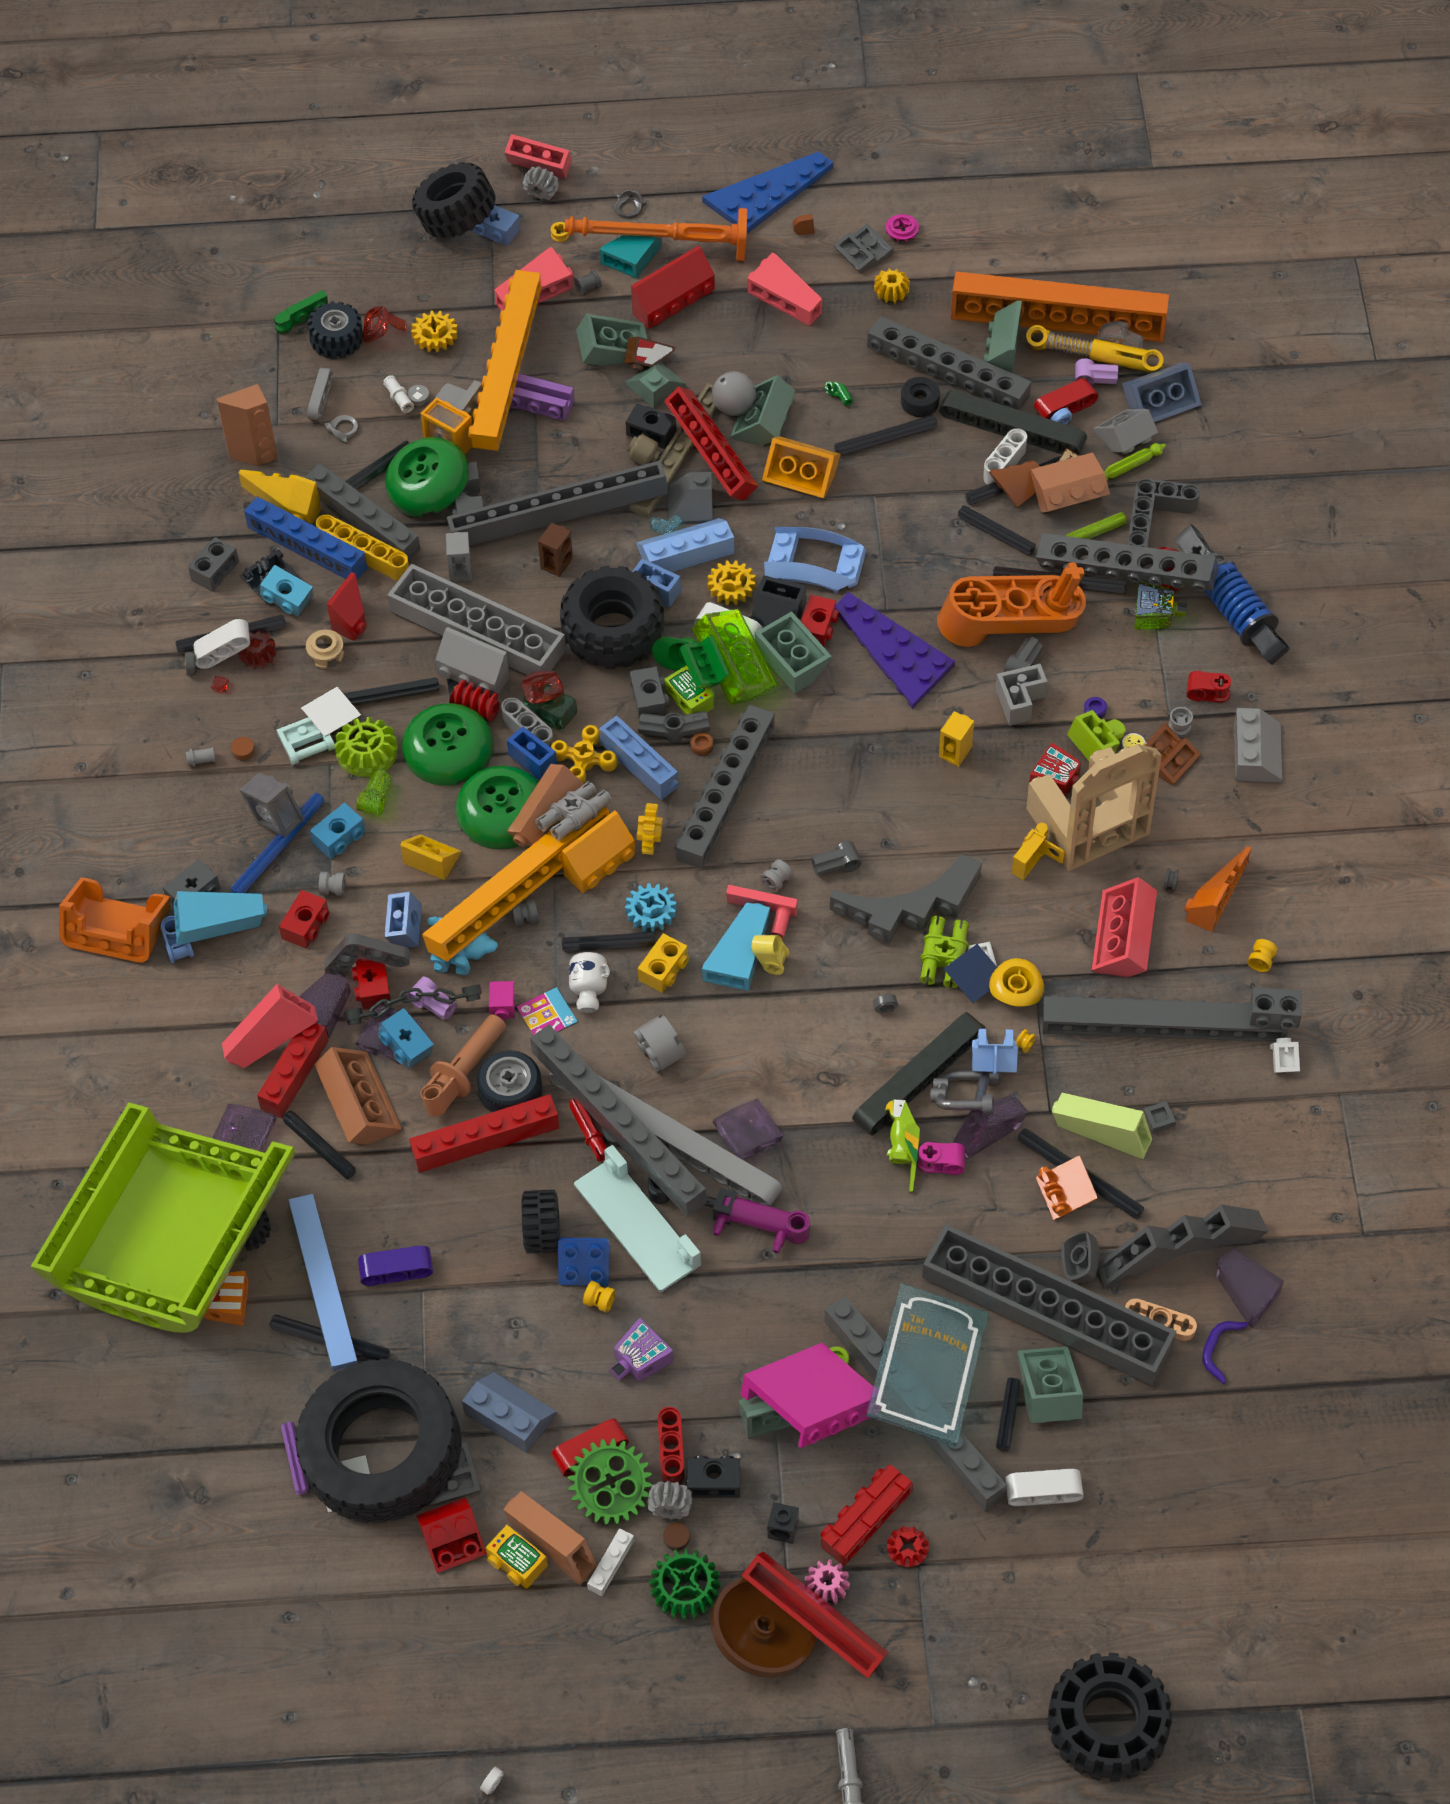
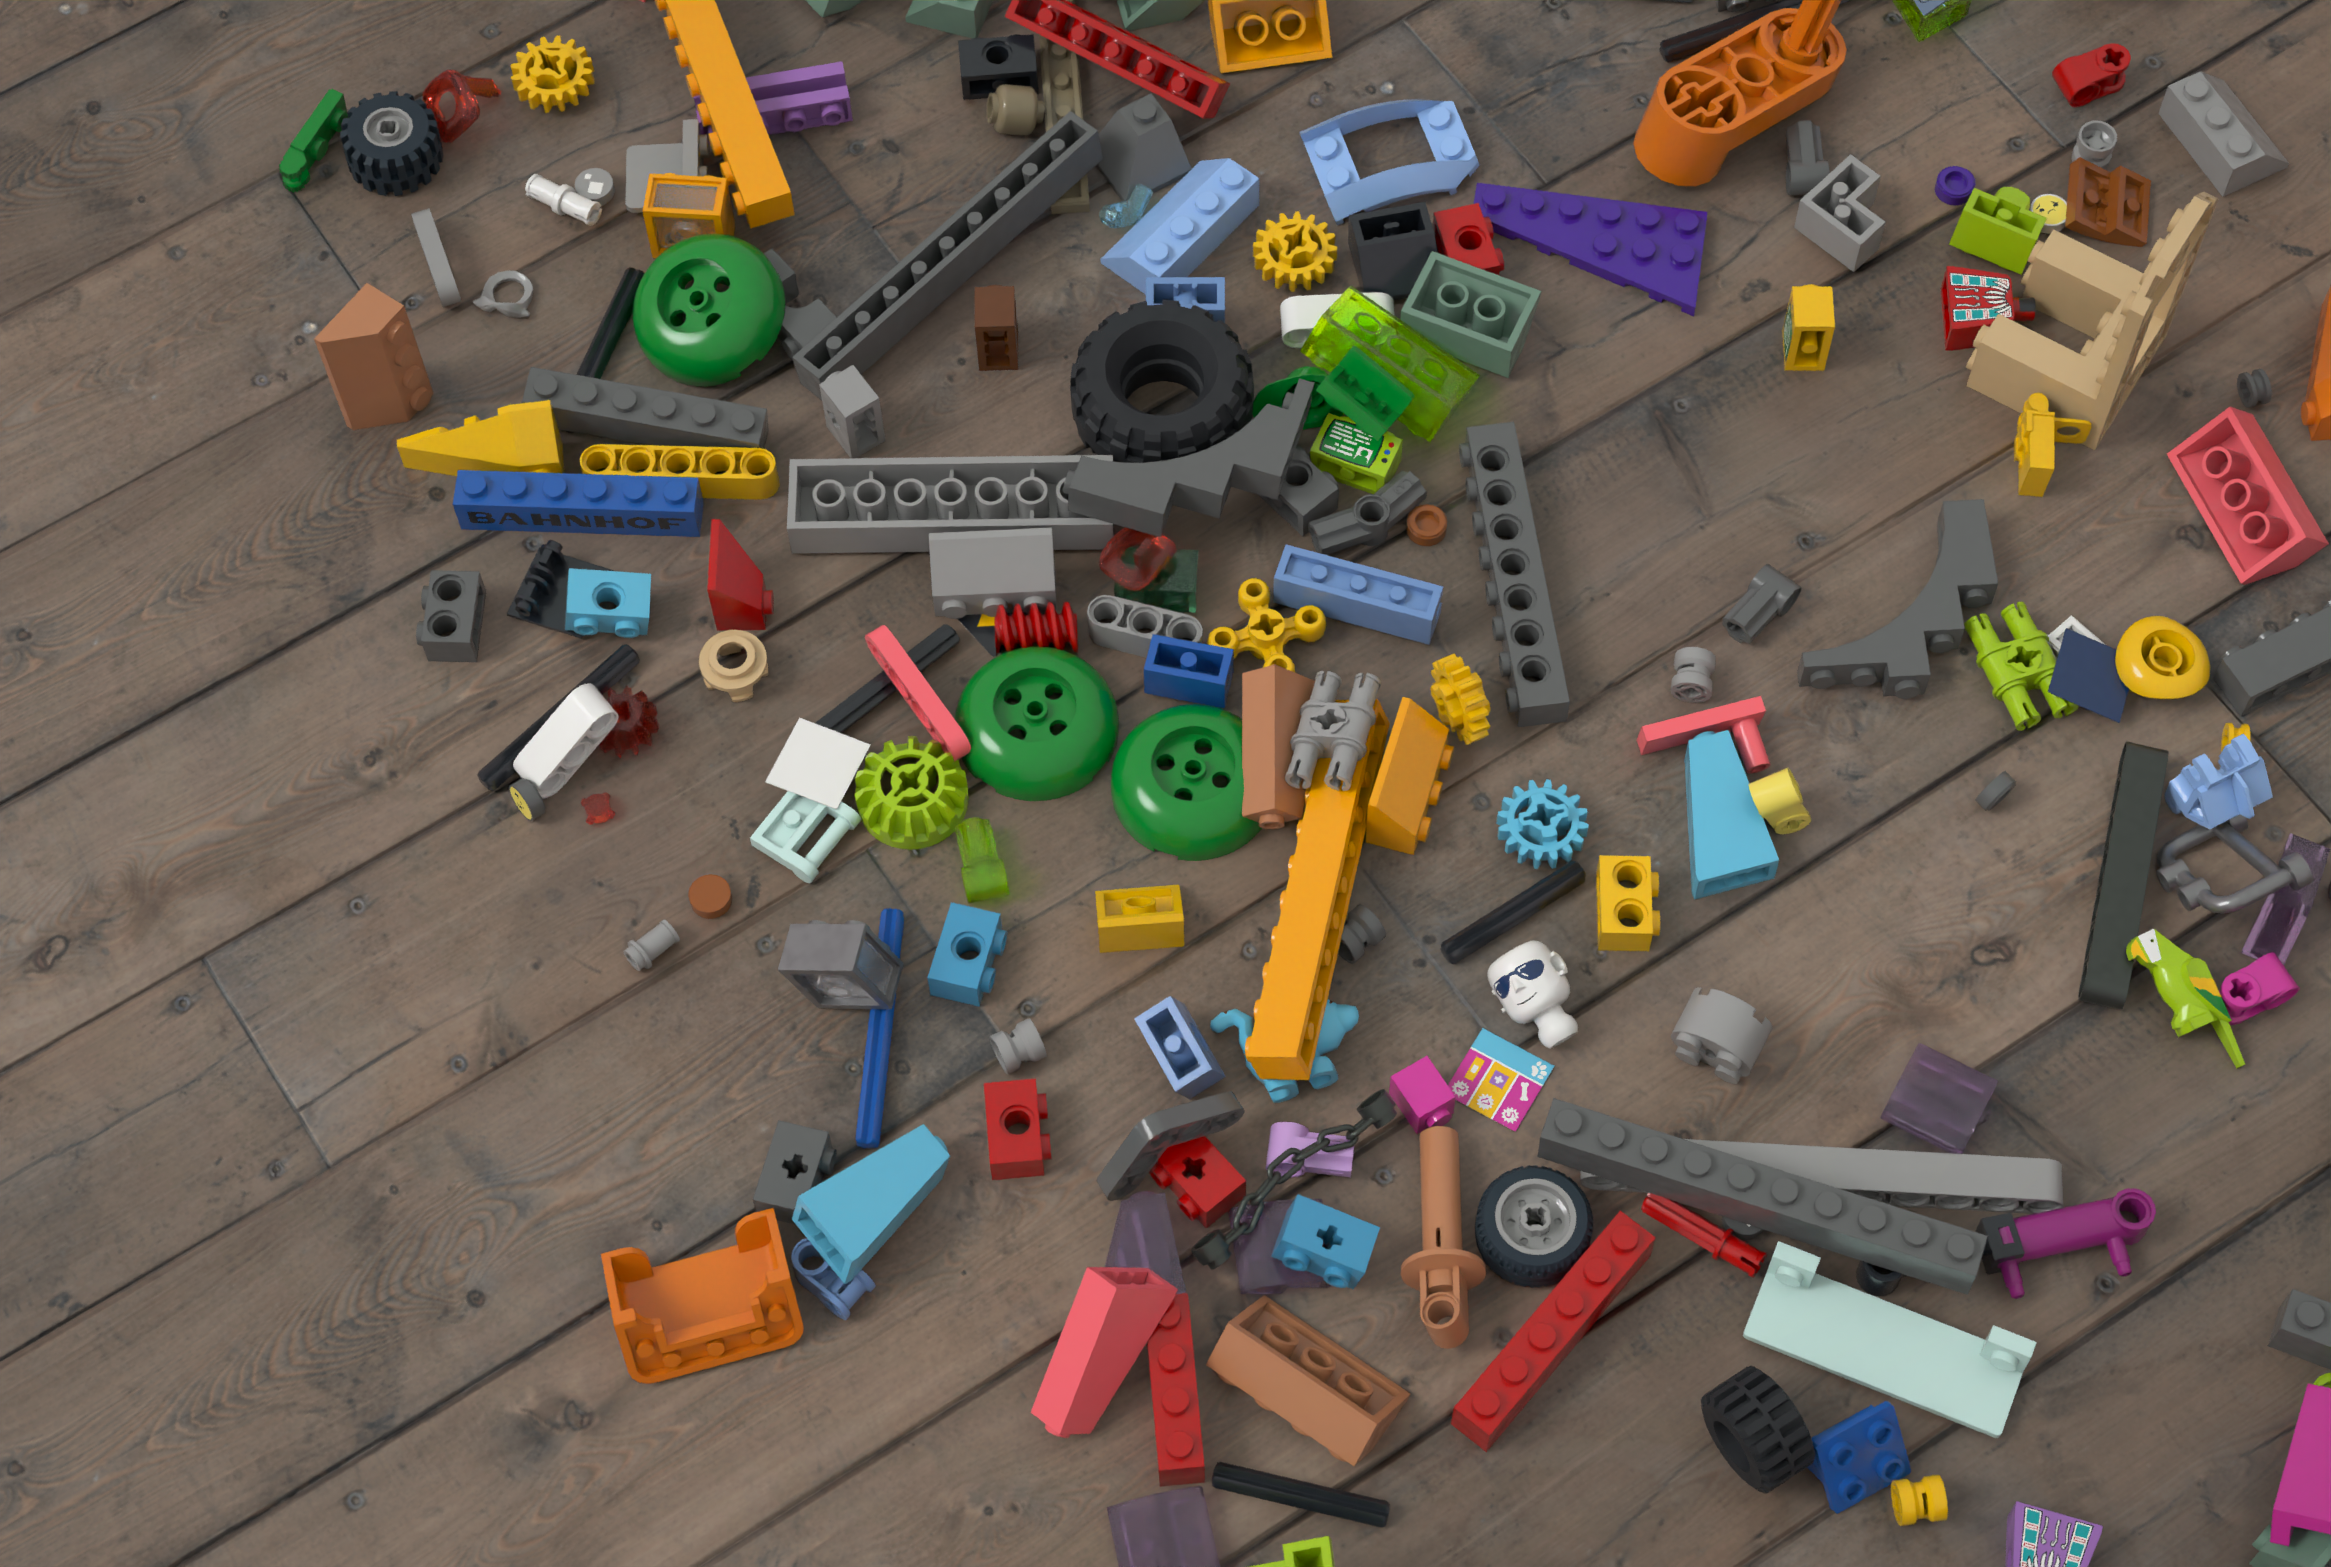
camera: 30 degrees left, 5 degrees up
(397, 701) = (917, 692): none -> coral beam
(628, 667) = (1144, 493): none -> dark grey arch

